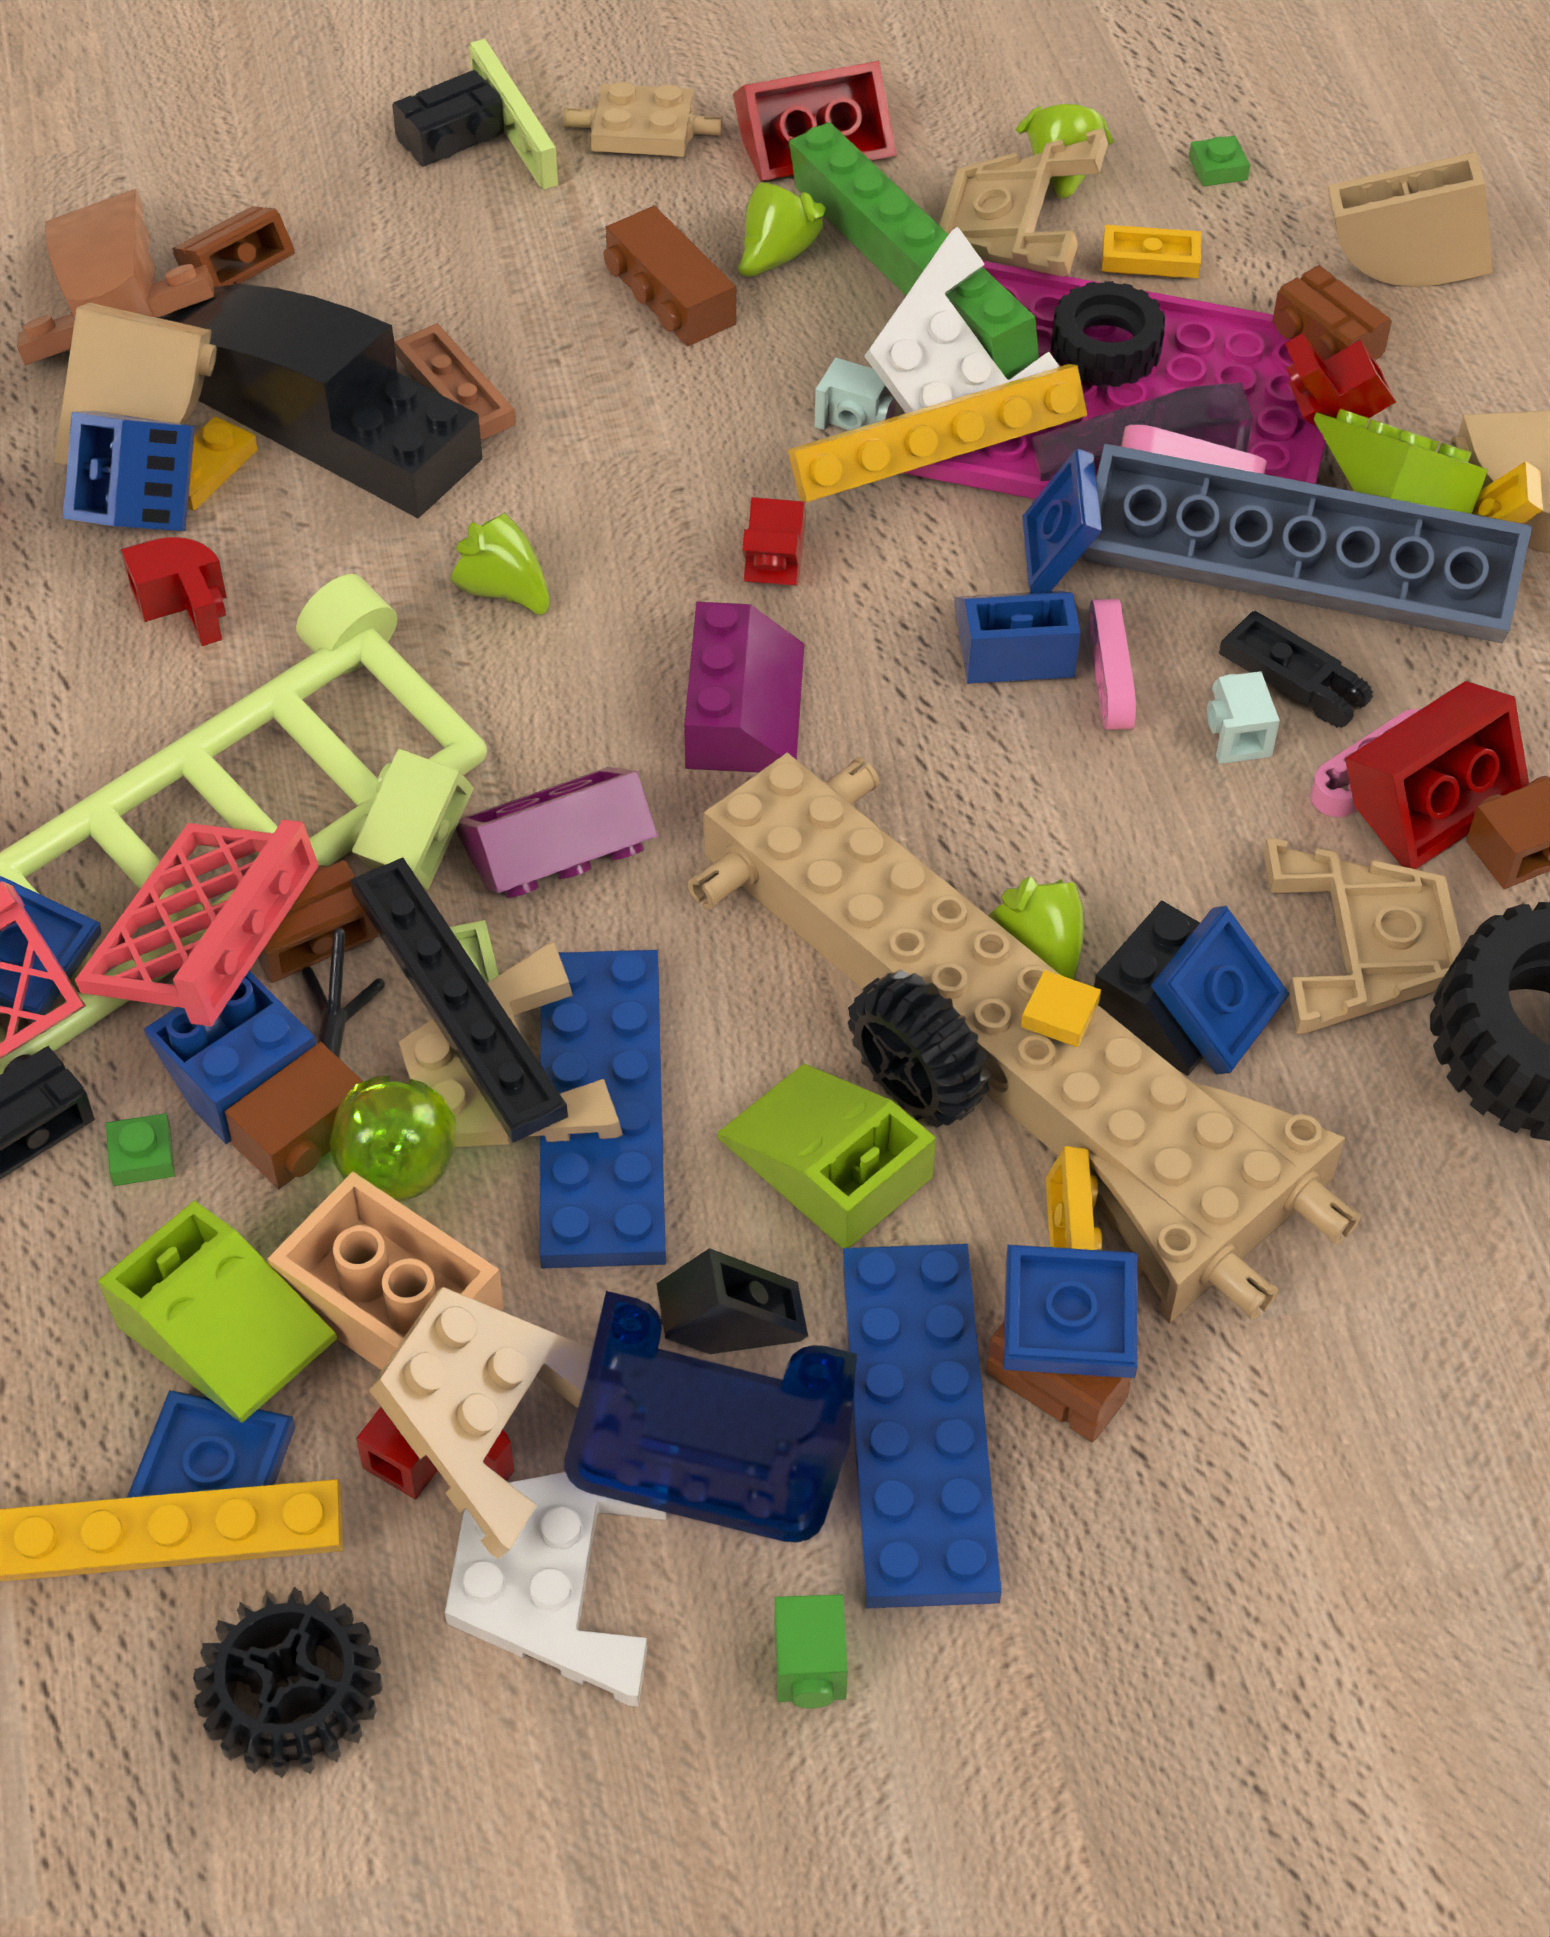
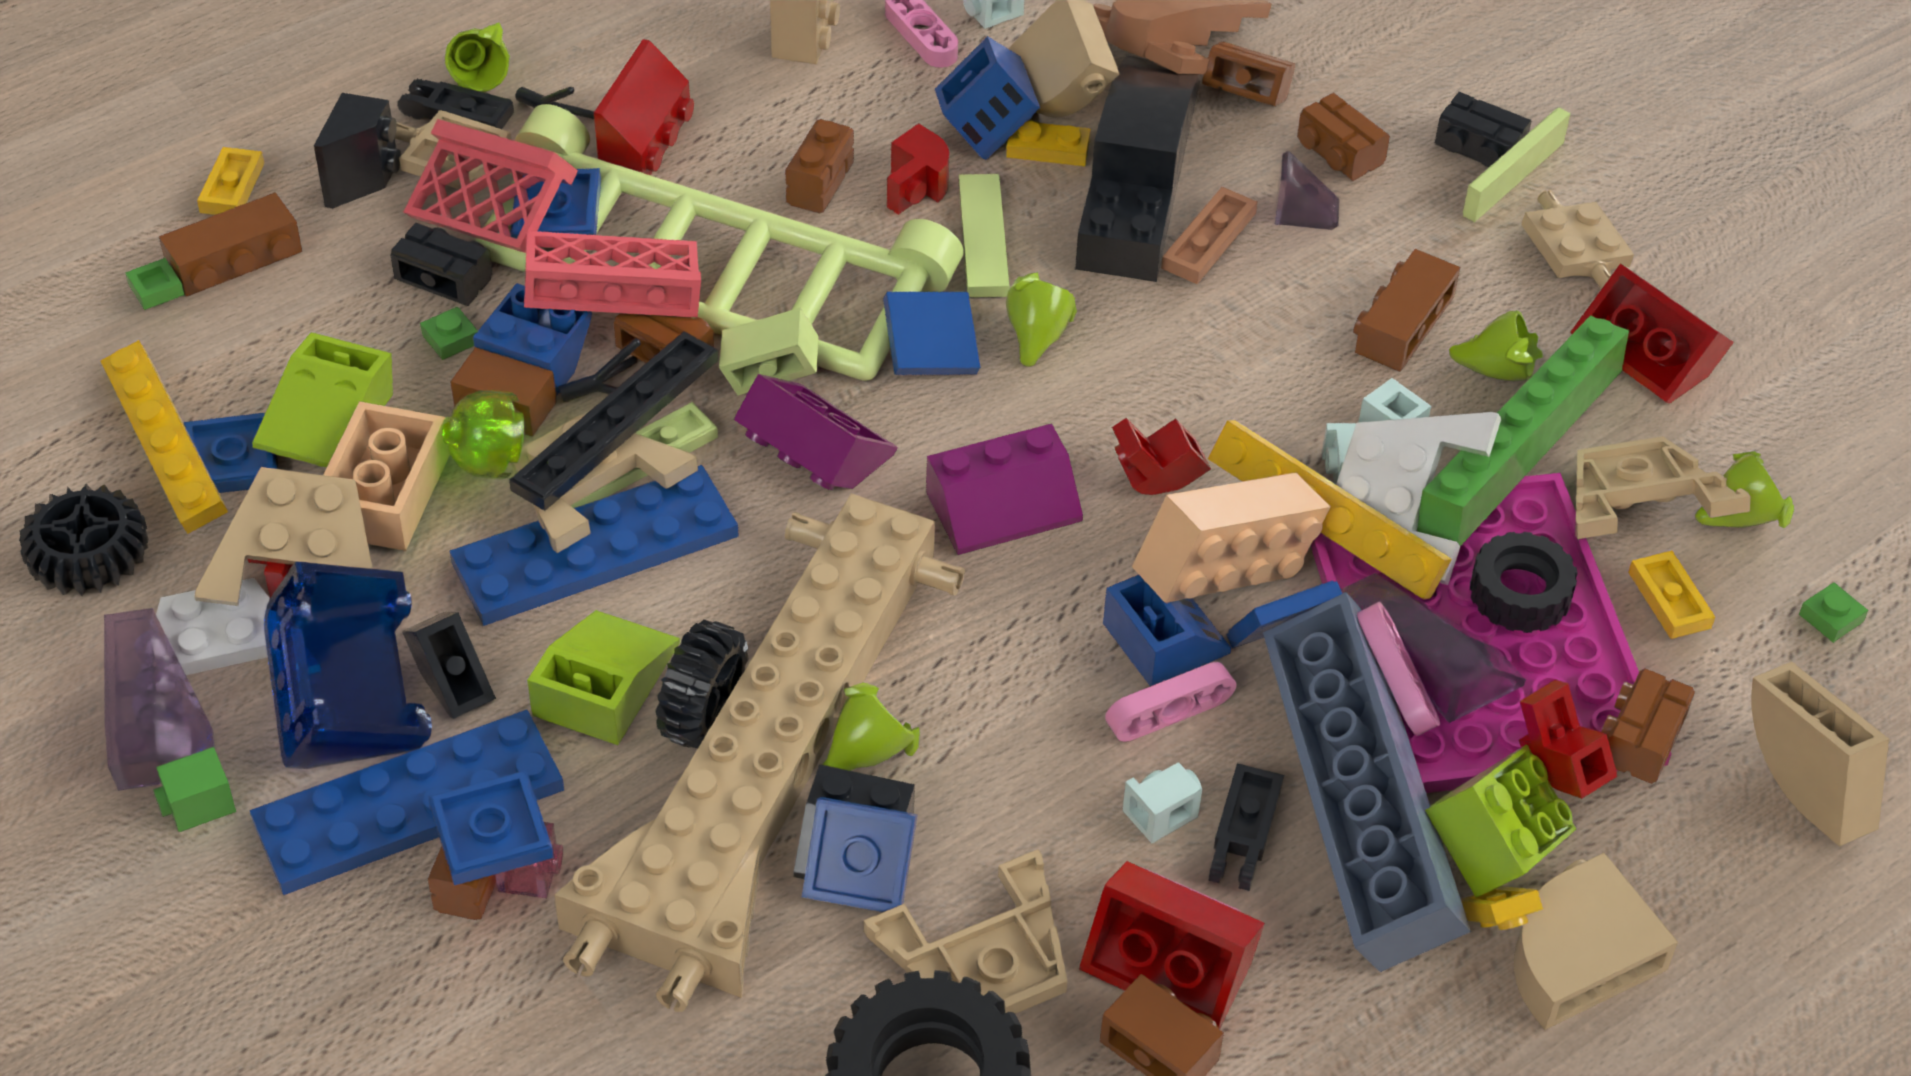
camera: 65 degrees right, 5 degrees down
(112, 672) = (819, 166): none -> dark orange brick
(308, 566) = (983, 235): none -> yellowish green tile
(380, 221) = (1343, 136): none -> dark orange brick
(448, 292) = (1303, 198): none -> slope
(468, 665) = (931, 333): none -> blue tile
(655, 1667) = (147, 701): none -> clear purple wedge
(813, 341) = (1392, 402): none -> light aqua brick
(967, 511) = (1230, 536): none -> light nougat brick
(1060, 1008) = (760, 742): yellow tile -> none
(1071, 1200) = (597, 833): yellow plate -> none

